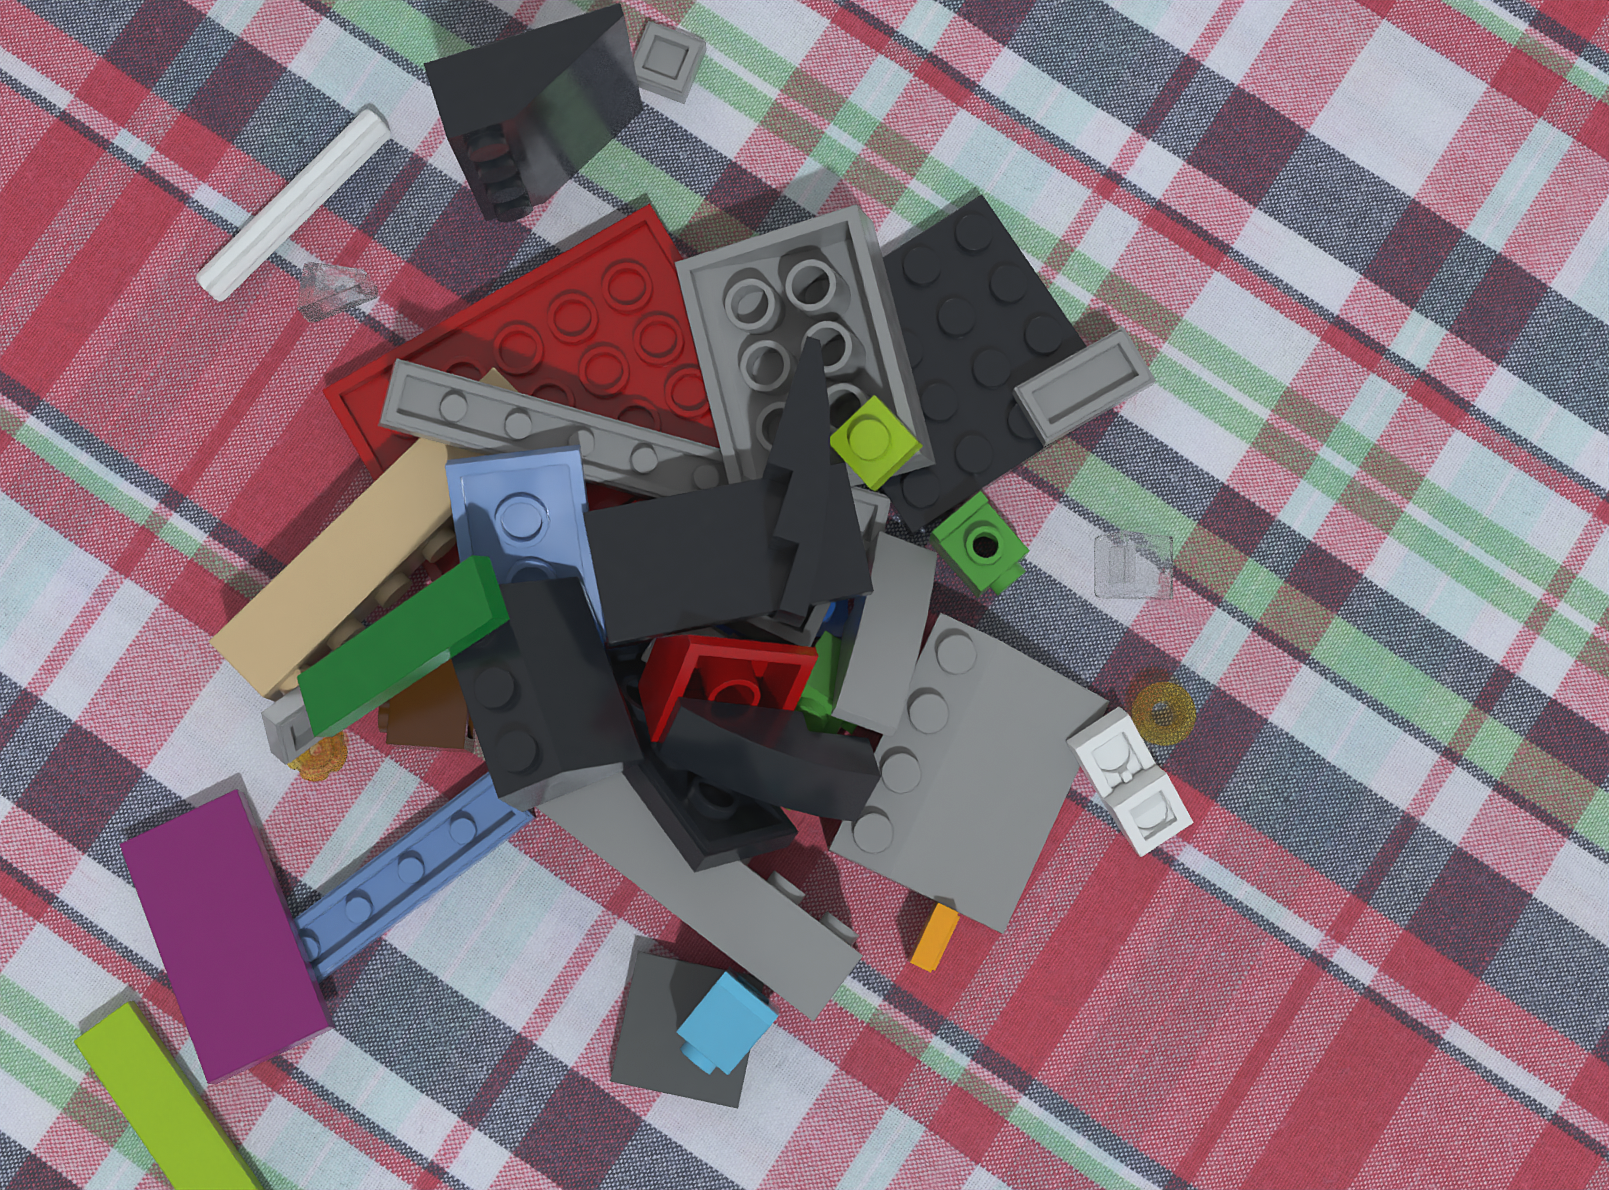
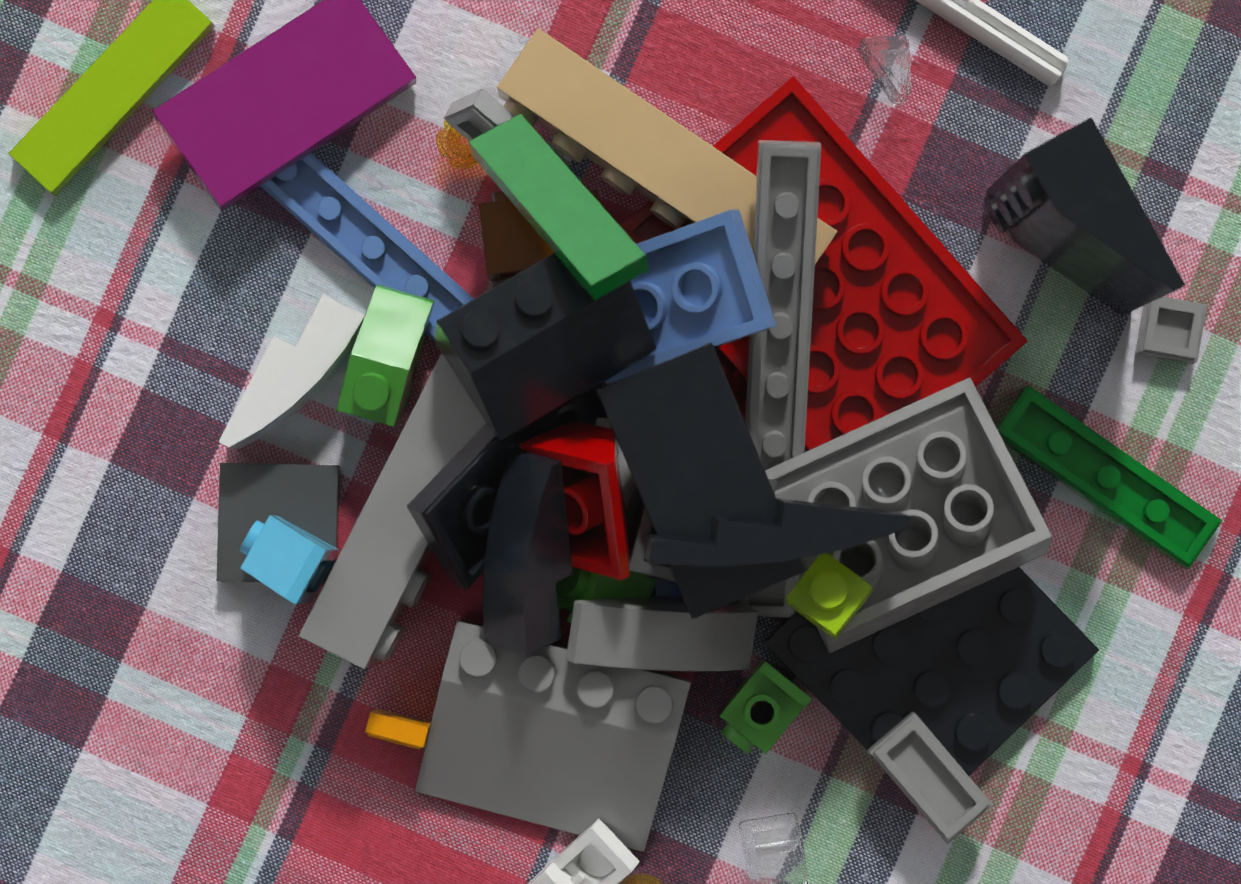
camera: 75 degrees right, 5 degrees up
(528, 979) = (294, 374): none -> white slope
(529, 876) = (385, 356): none -> bright green slope
(807, 152) = (1107, 477): none -> green tile

